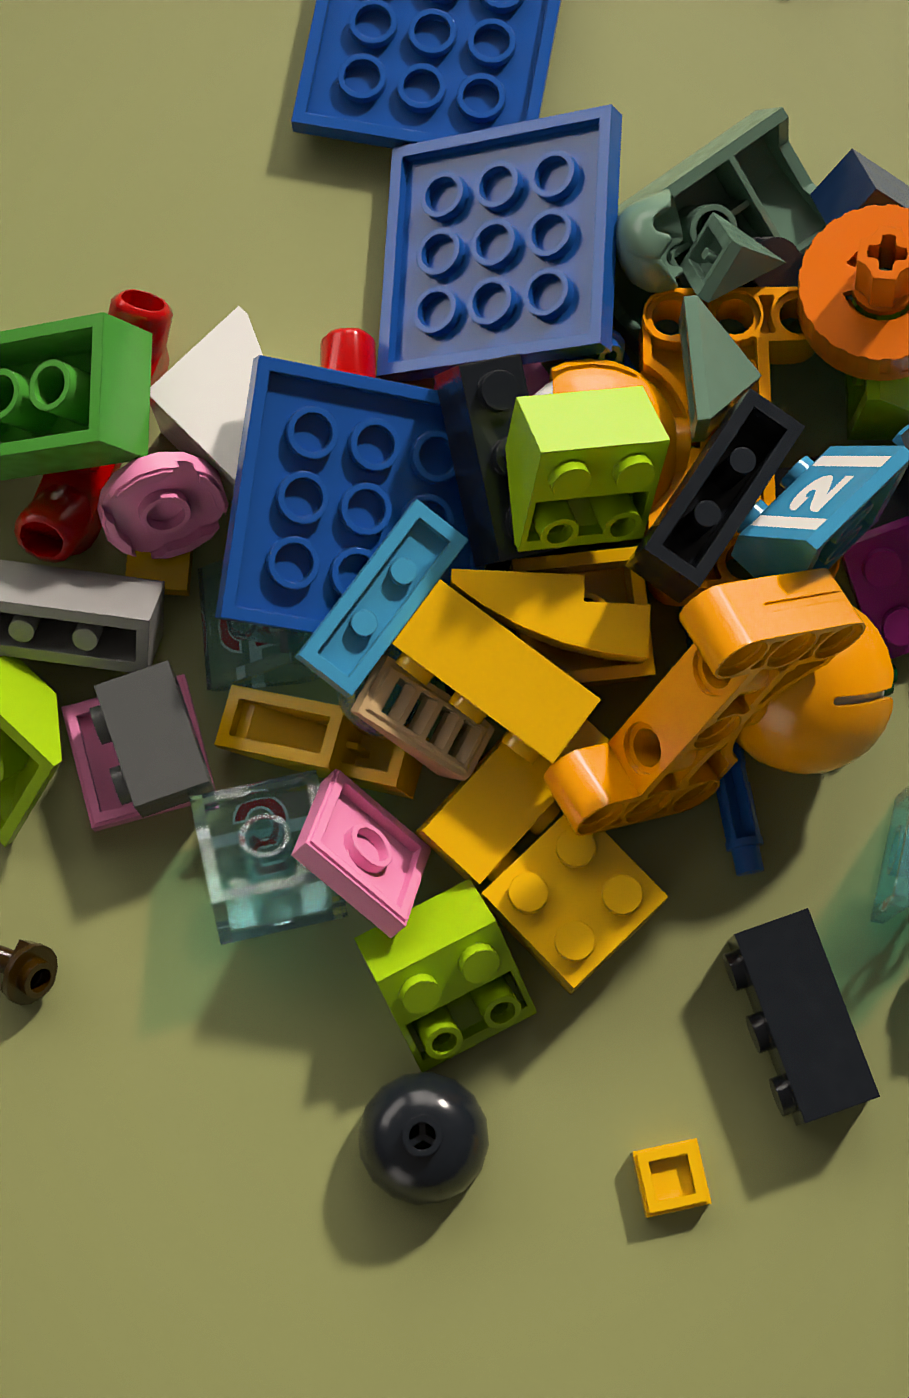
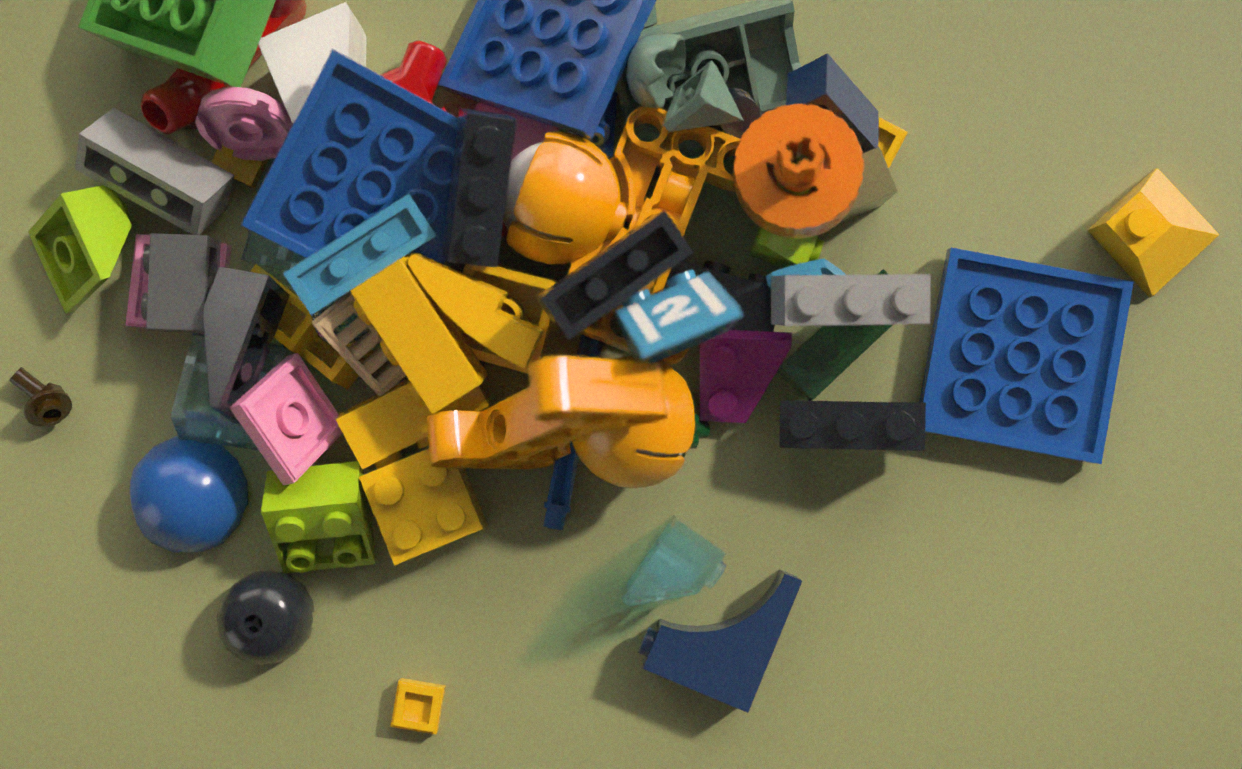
camera: 20 degrees right, 10 degrees up
(254, 751) = (238, 331): none -> black slope
(259, 1016) = (188, 495): none -> blue cylinder
(583, 467) = (525, 220): lime slope -> none
(713, 367) = (657, 180): sand green slope -> none
(799, 1018) = (541, 640): black brick -> none

